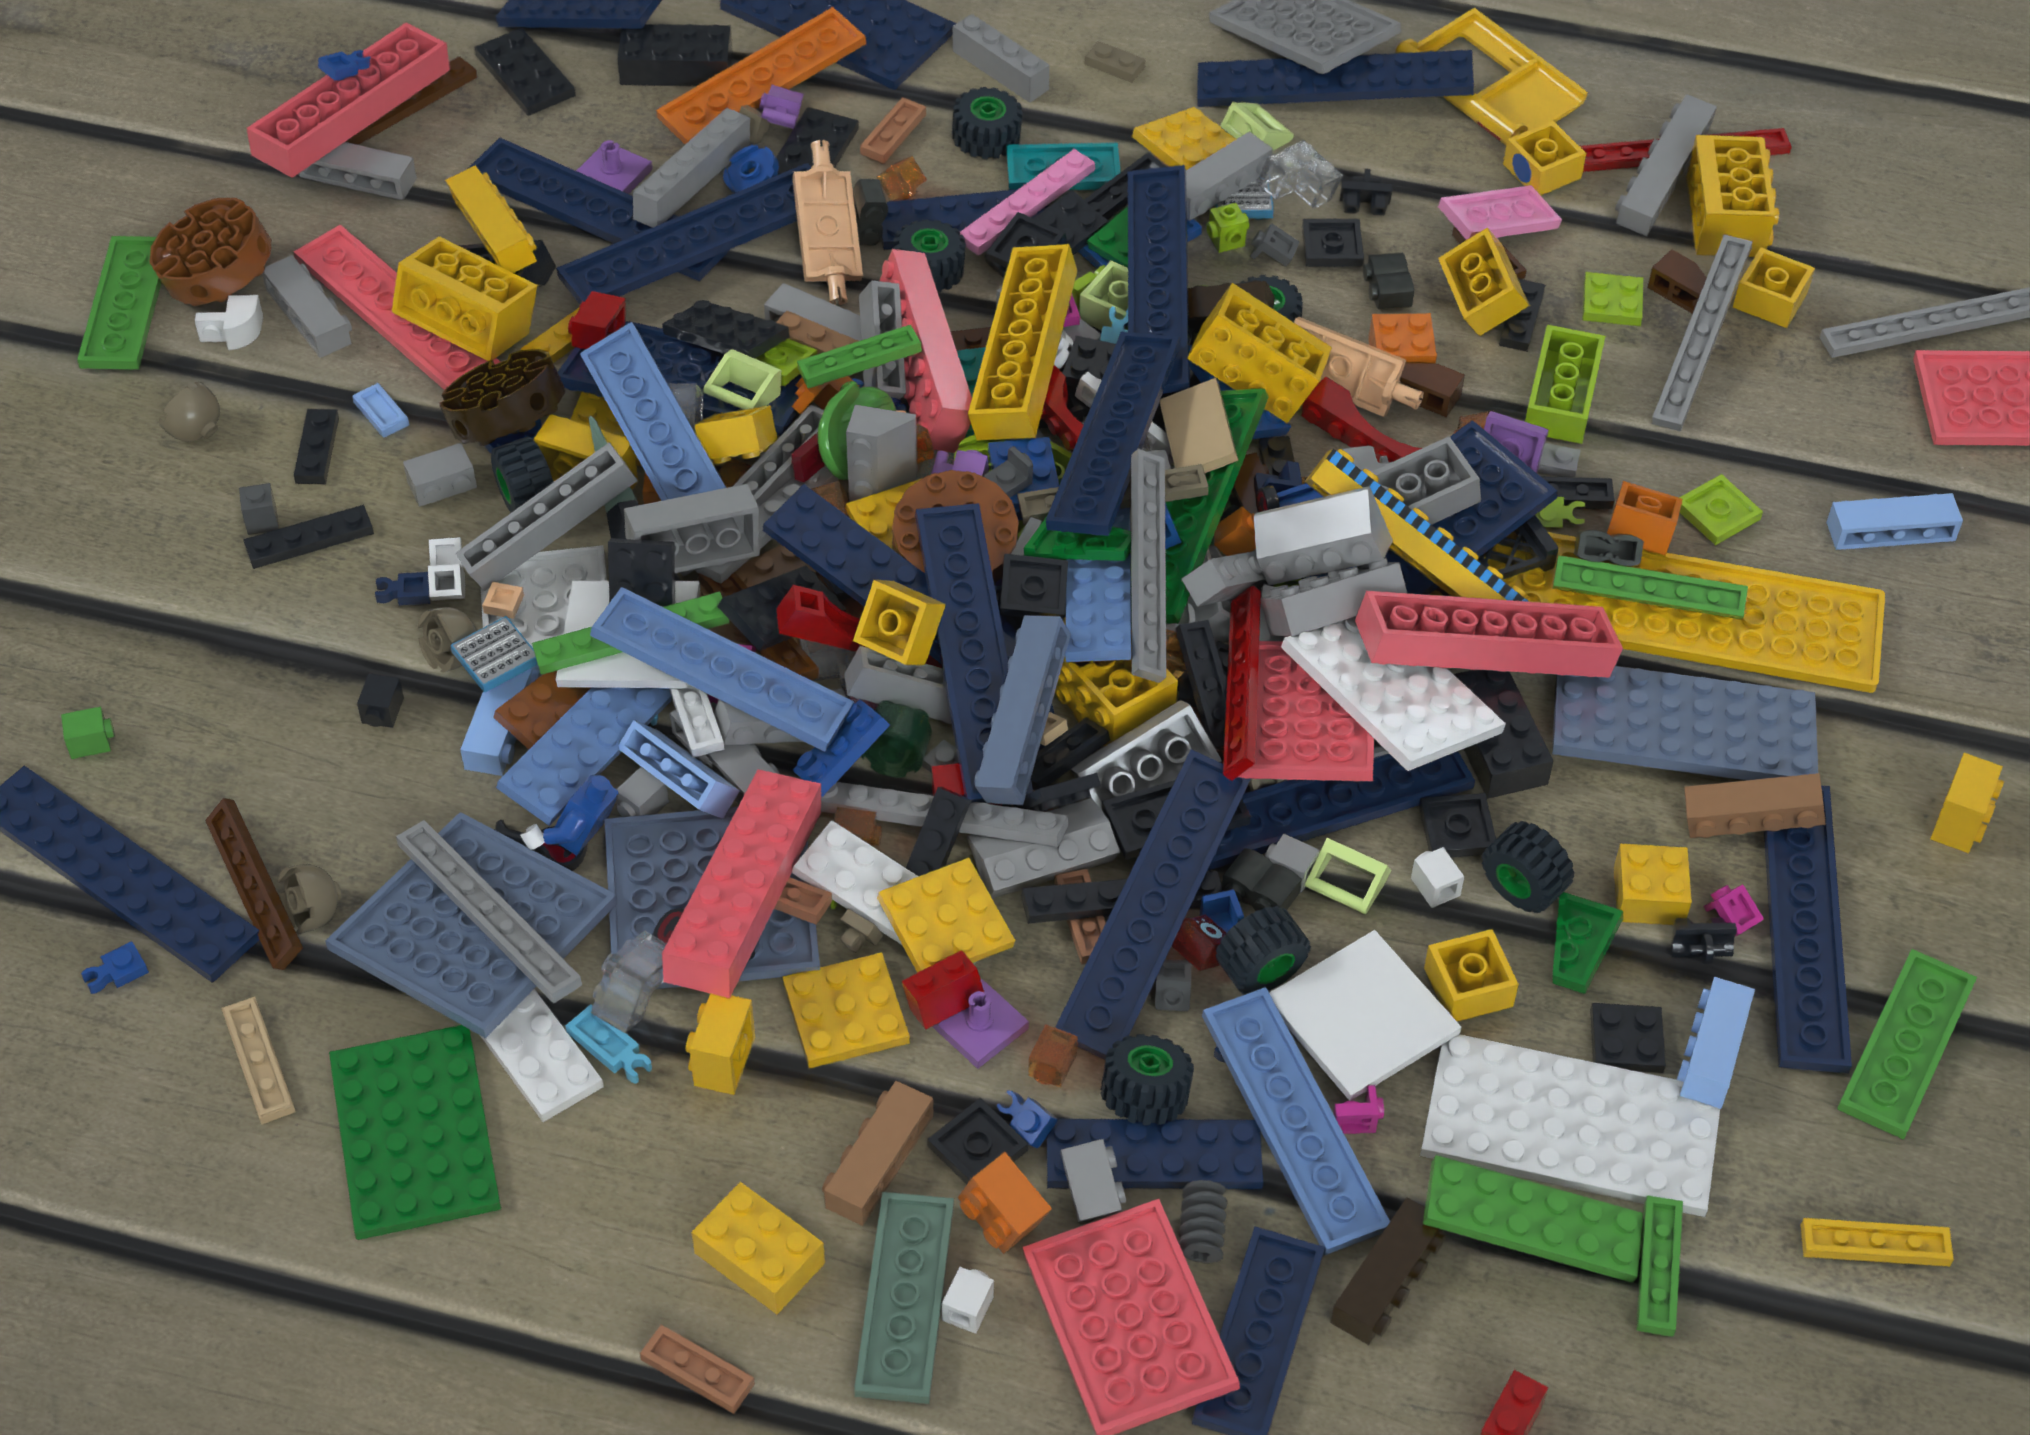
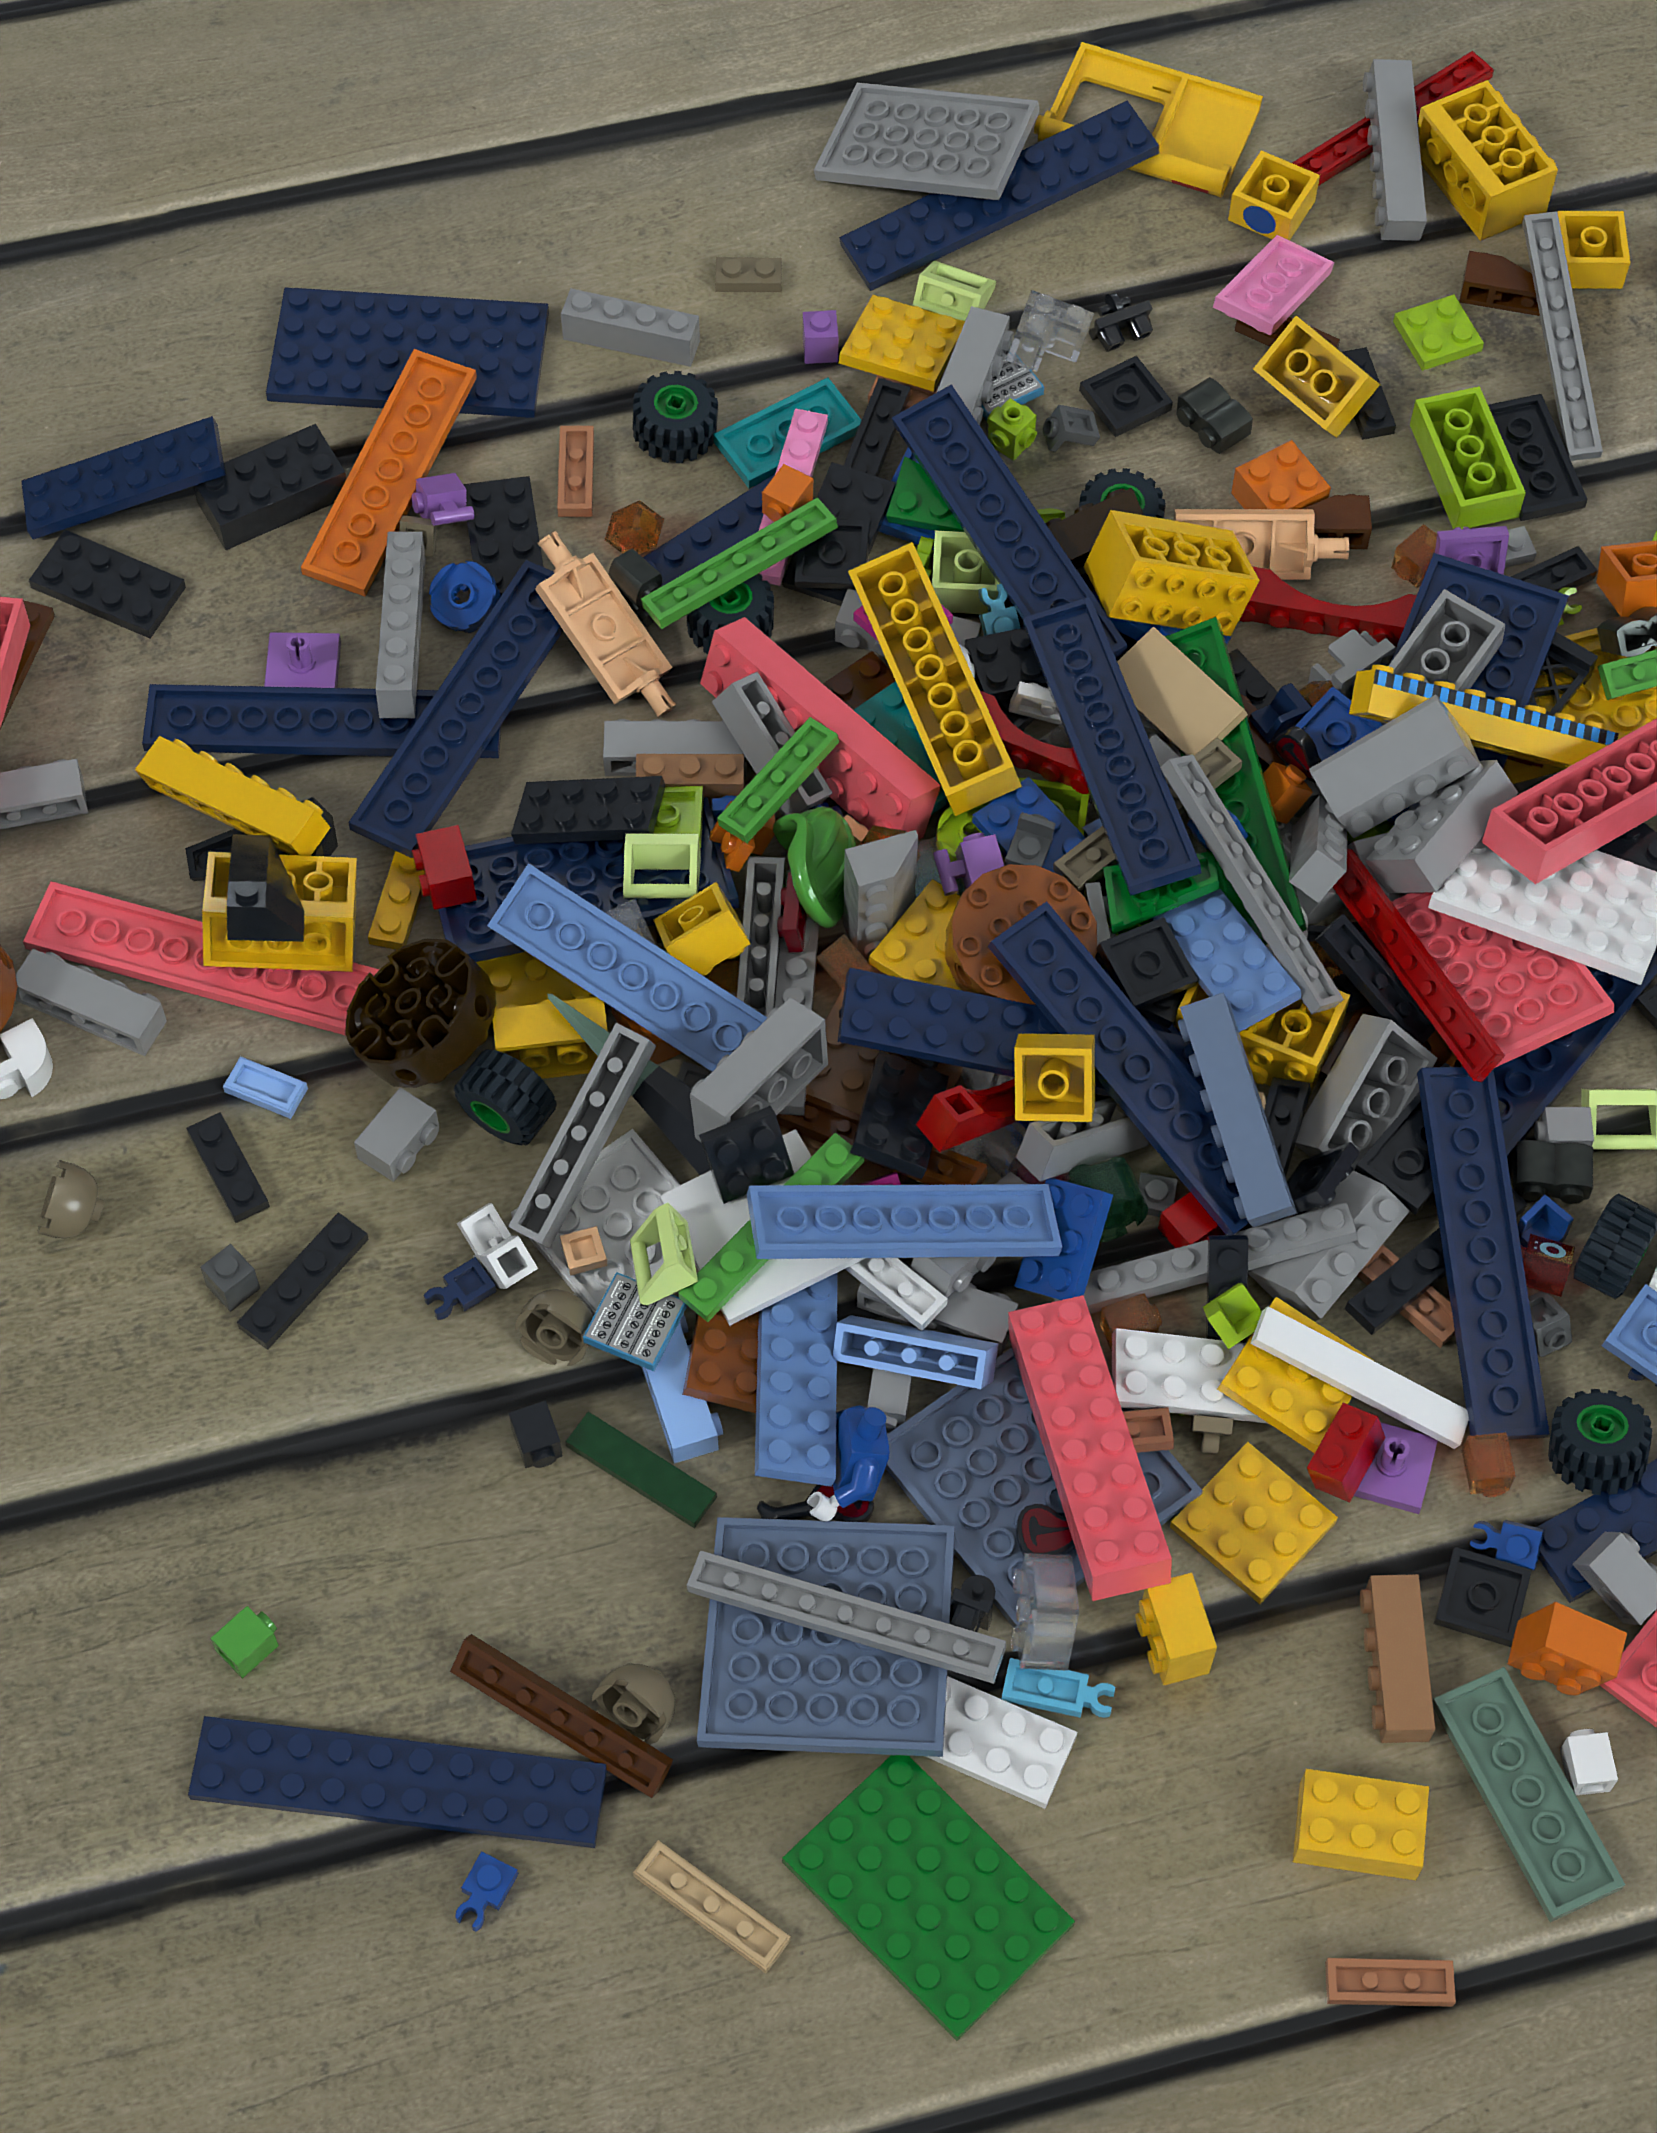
camera: 30 degrees left, 10 degrees up
(436, 760) = (641, 1469): none -> dark green tile
(442, 267) = (260, 894): none -> black wedge
(542, 614) = (678, 1269): none -> yellowish green tile
(585, 955) = (973, 1603): none -> black hips
(925, 852) = (1233, 1314): none -> lime panel
(949, 219) = (739, 563): none -> bright green plate
(990, 941) = (1360, 1377): none -> white tile
(1017, 193) = (786, 492): none -> orange brick
(1130, 113) = (820, 337): none -> medium lavender brick
(1621, 407) = (1538, 457): none -> black plate

